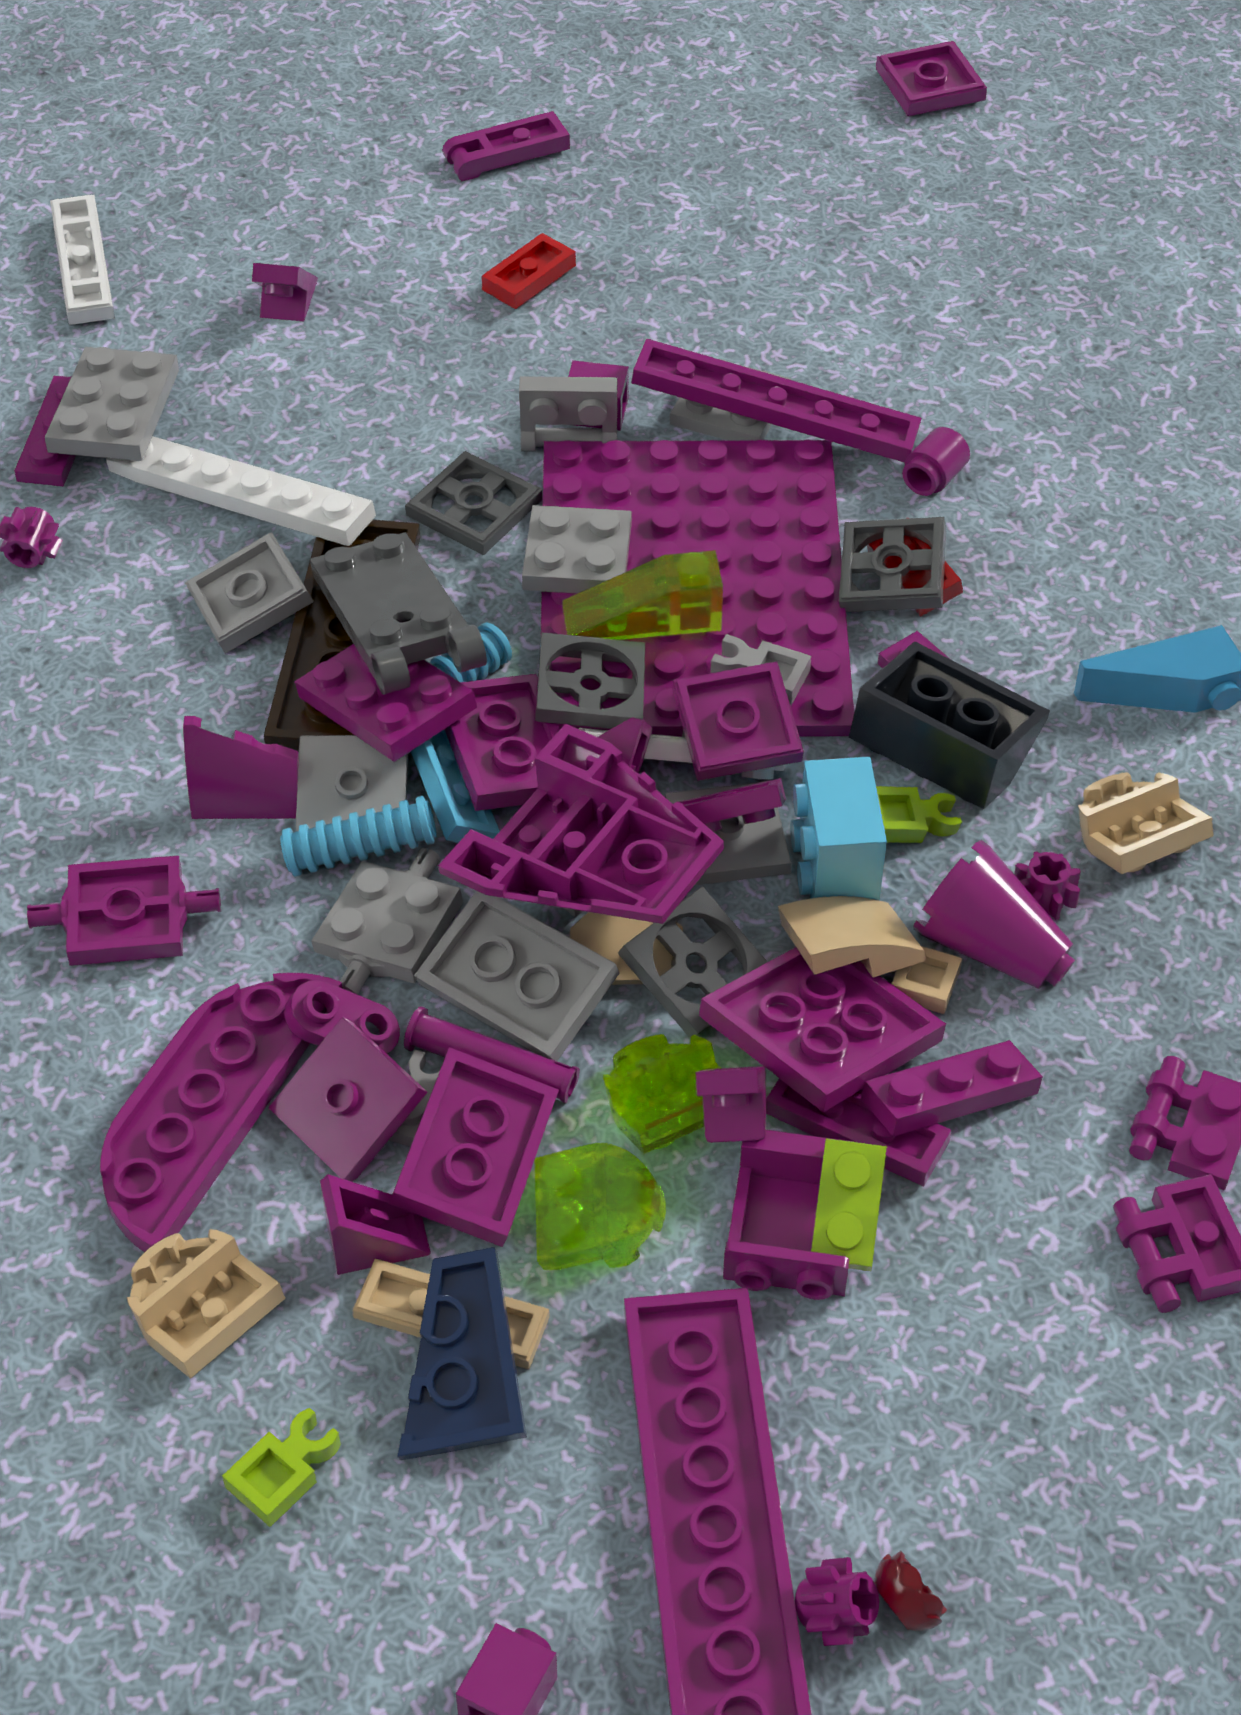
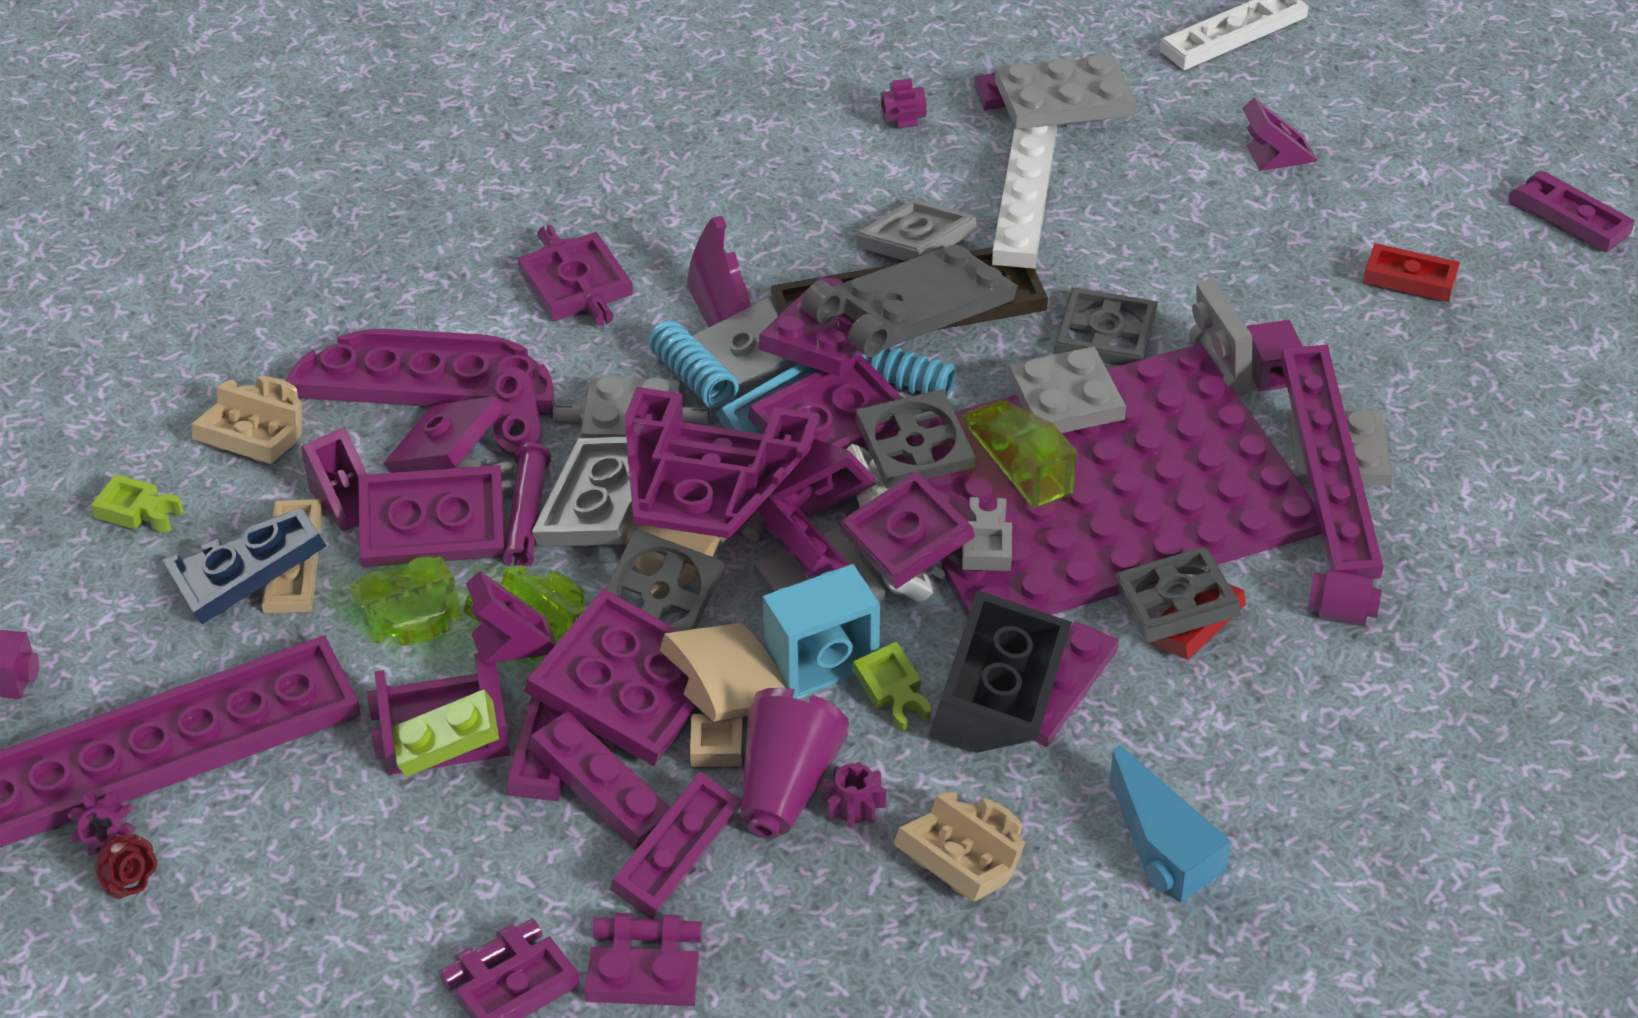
camera: 70 degrees right, 5 degrees down
(1061, 1050) = (675, 845): none -> magenta plate

